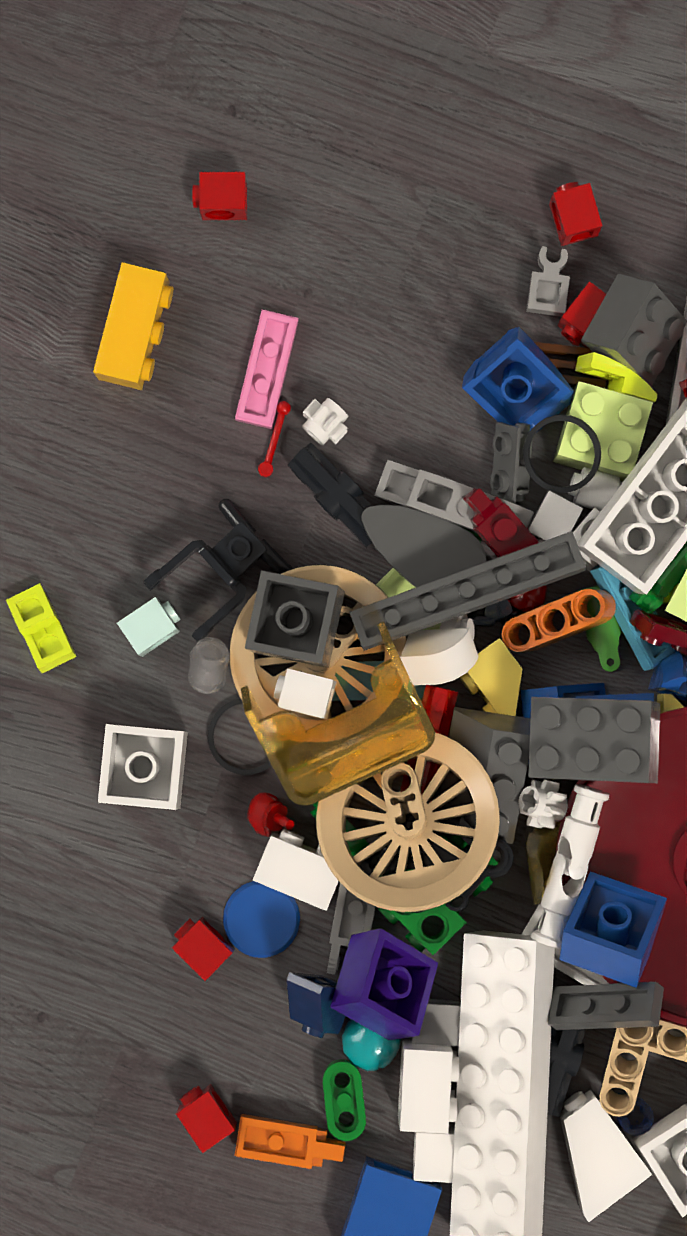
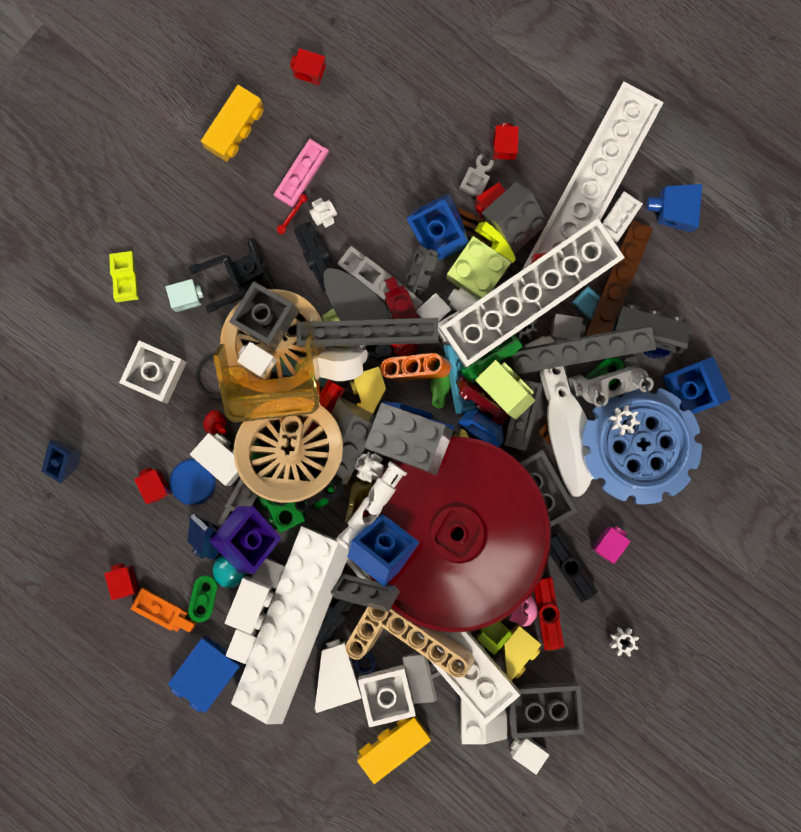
camera: 15 degrees right, 0 degrees up
(44, 958) = (60, 460): none -> dark blue slope
(208, 665) = (209, 328): clear brick -> none
(526, 453) = (429, 278): black piece -> none

